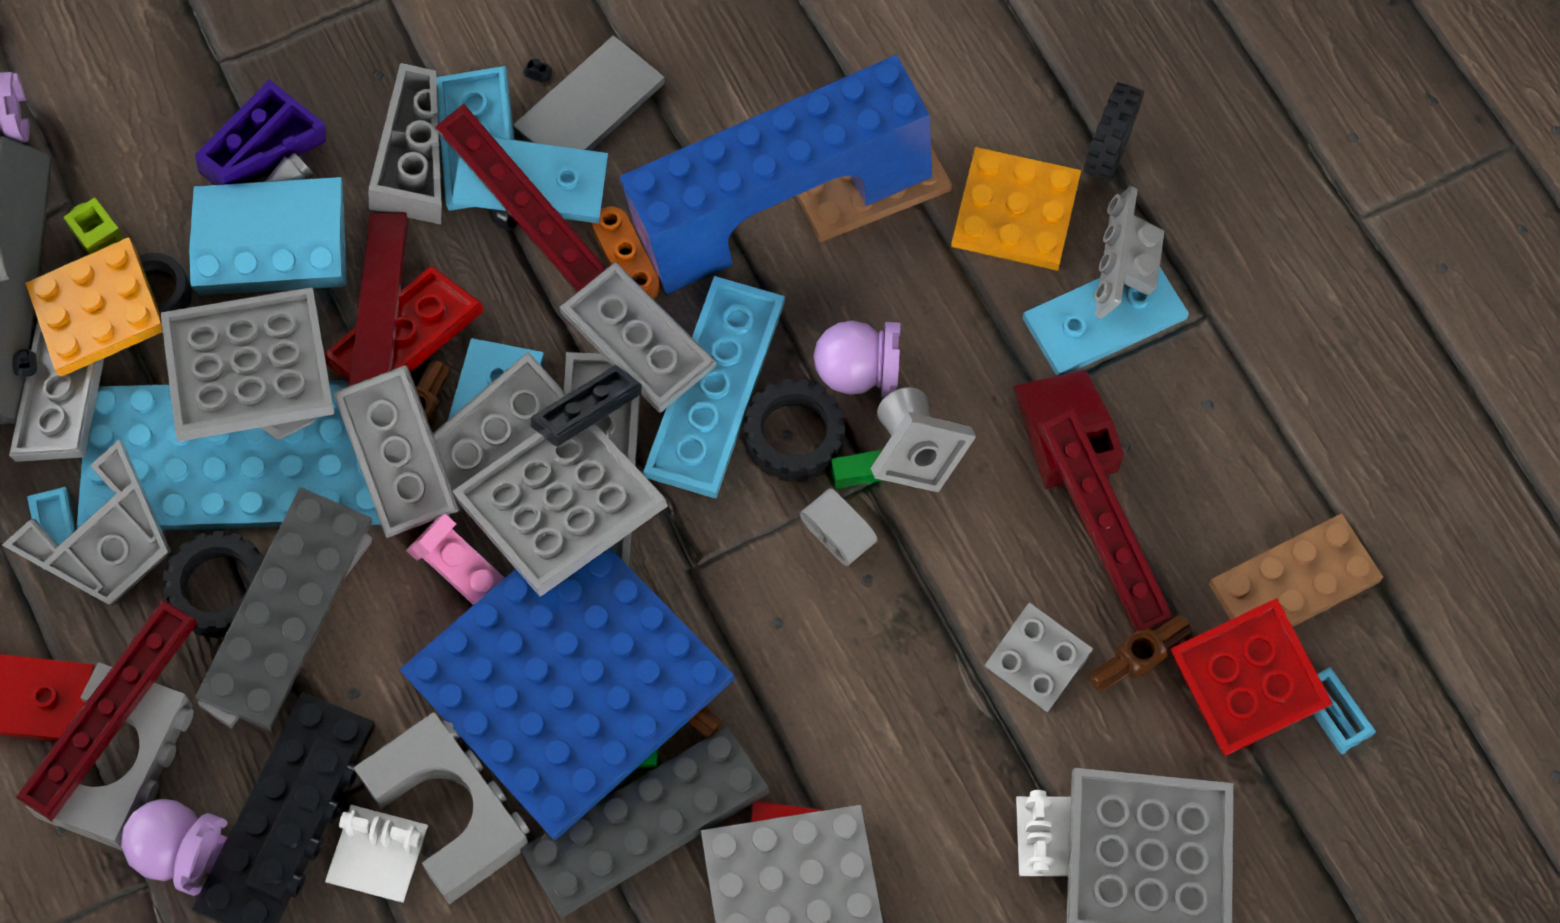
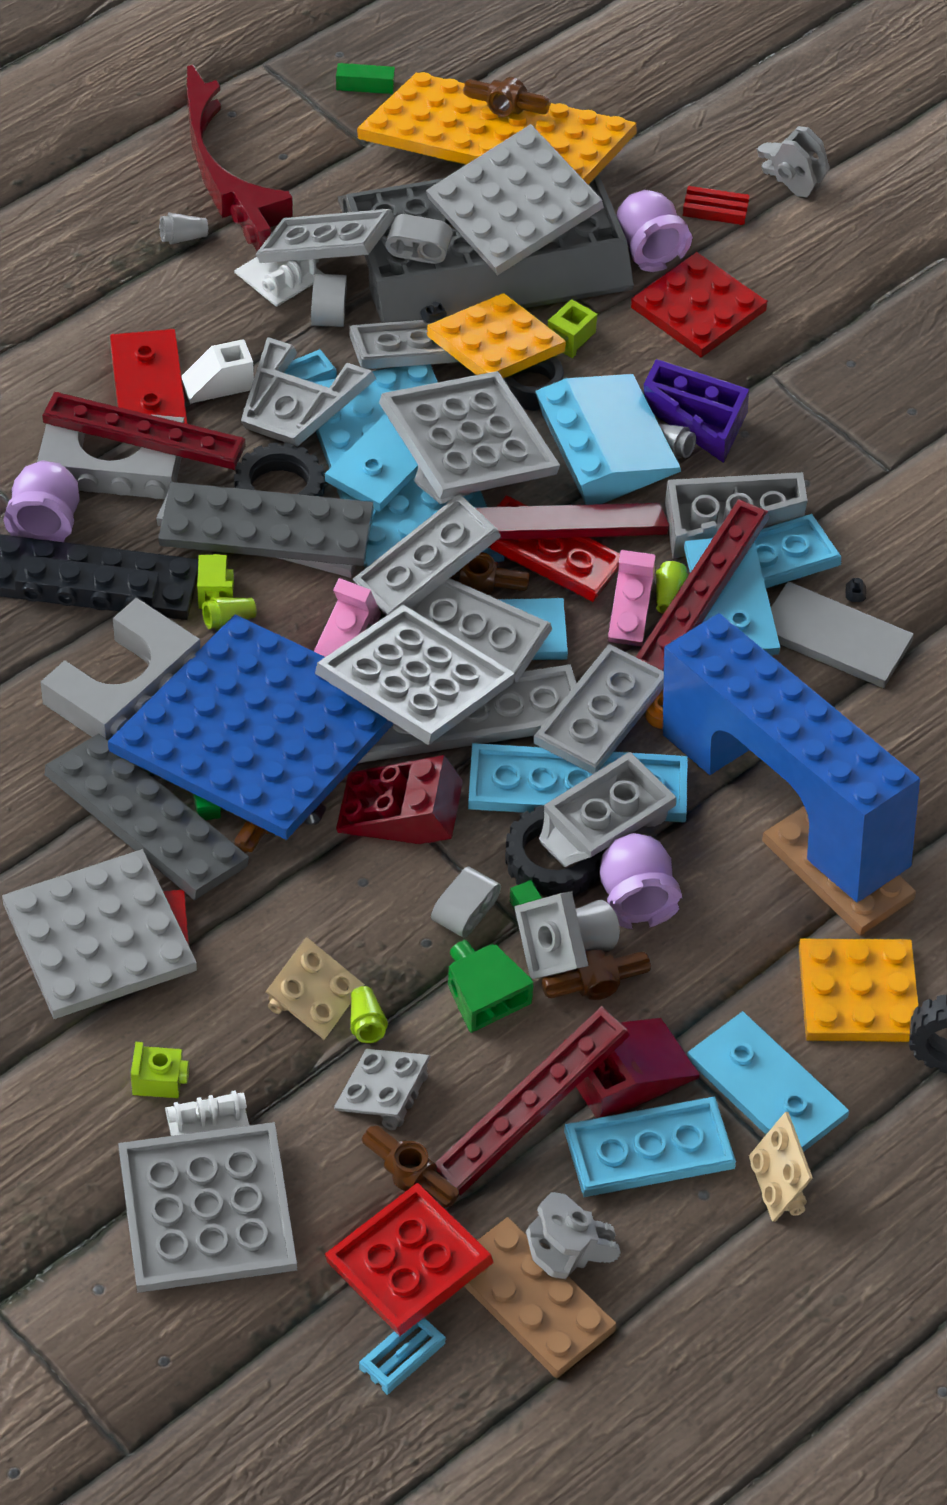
camera: 75 degrees right, 15 degrees down
(34, 610) = (220, 372): none -> white slope
(98, 101) = (699, 304): none -> red plate
(230, 469) = (374, 466): none -> medium azure plate
(341, 681) = (214, 578): none -> lime brick
(376, 853) = (74, 638): white hinge -> none
(387, 682) = (222, 609): none -> lime cone
(487, 233) = (668, 582): none -> lime cone
(499, 272) = (632, 598): none -> bright pink bracket
(586, 405) = (513, 675): black tile -> none
(698, 559) = (402, 801): none -> dark red slope
(781, 365) = (604, 809): none -> light grey slope
(910, 698) = (313, 988): none -> tan hinge
(943, 533) = (486, 984): none -> green torso
(952, 653) = (367, 1017): none -> lime cone
(953, 410) = (599, 978): none -> reddish brown axle
(978, 885) = (158, 1071): none -> lime brick
(1130, 254) = (835, 1086): light grey bracket -> none
(1157, 435) = (649, 1146): none -> medium azure plate
(1215, 325) = (781, 1169): none -> tan hinge
(1252, 529) = (571, 1237): none -> light grey hinge

